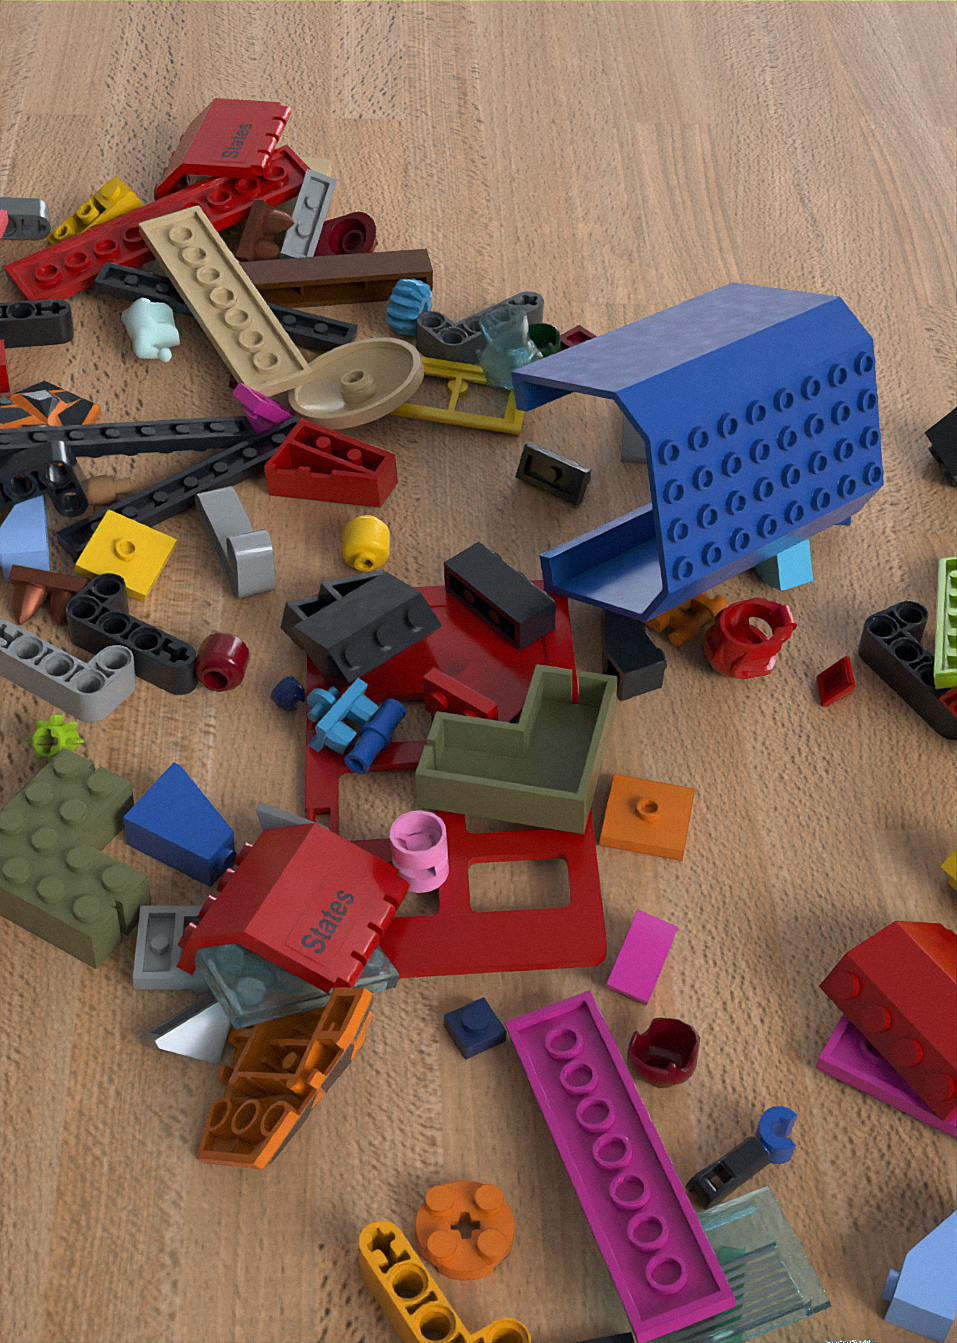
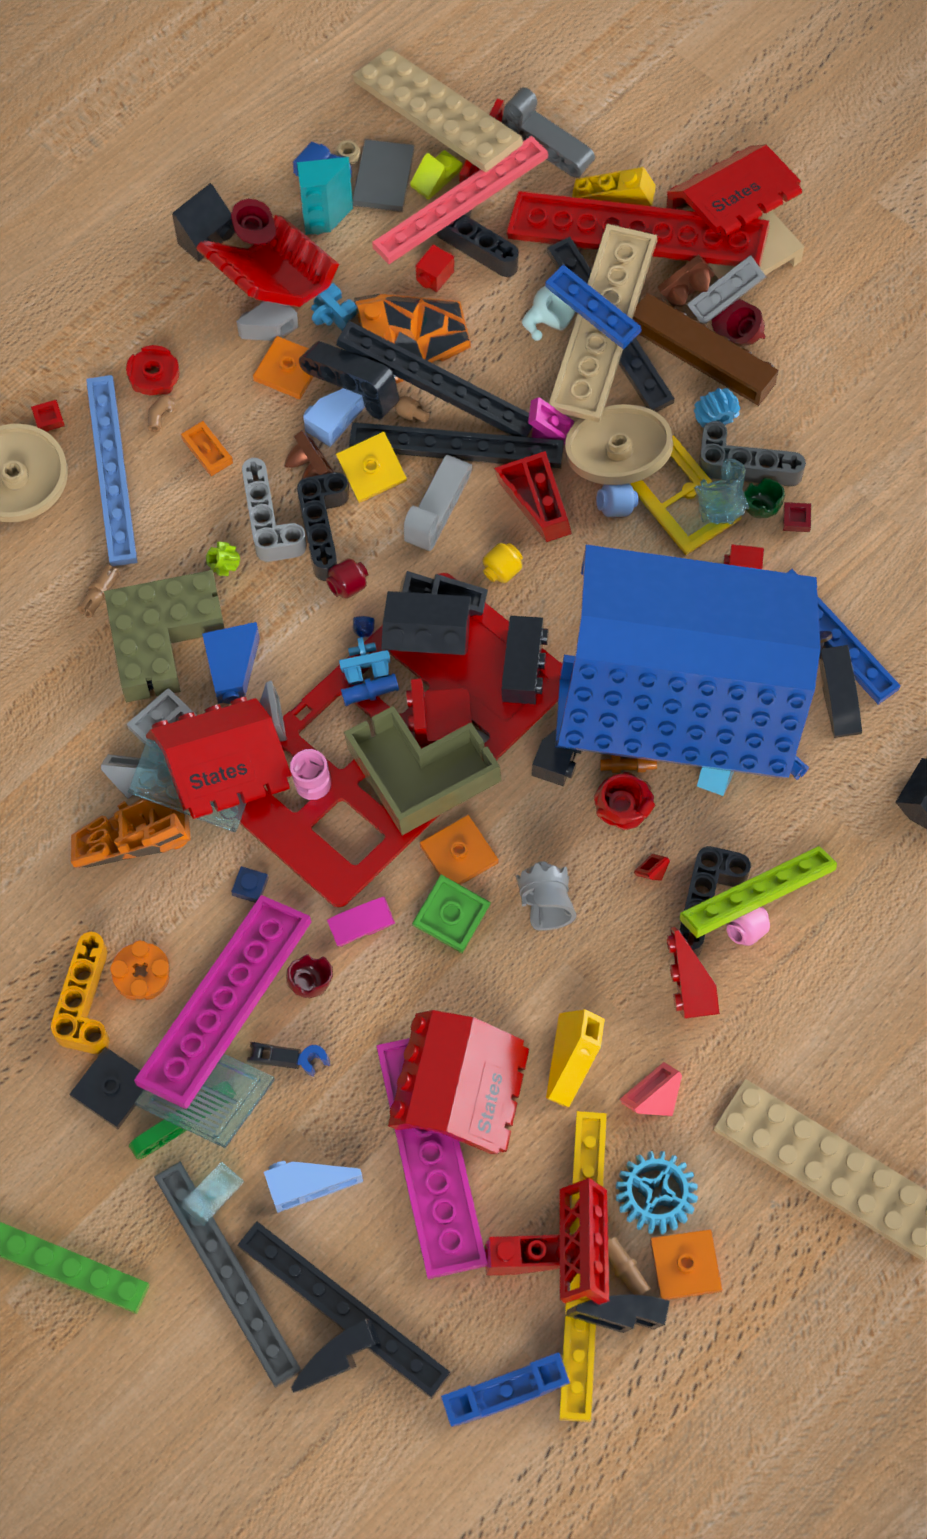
camera: 50 degrees right, 20 degrees up
(205, 285) = (593, 306): none -> blue plate
(406, 428) = (616, 500): none -> light blue head
(583, 409) = (745, 556): none -> red brick
(718, 873) = (451, 913): none -> bright green plate
(791, 774) = (546, 891): none -> light grey hat

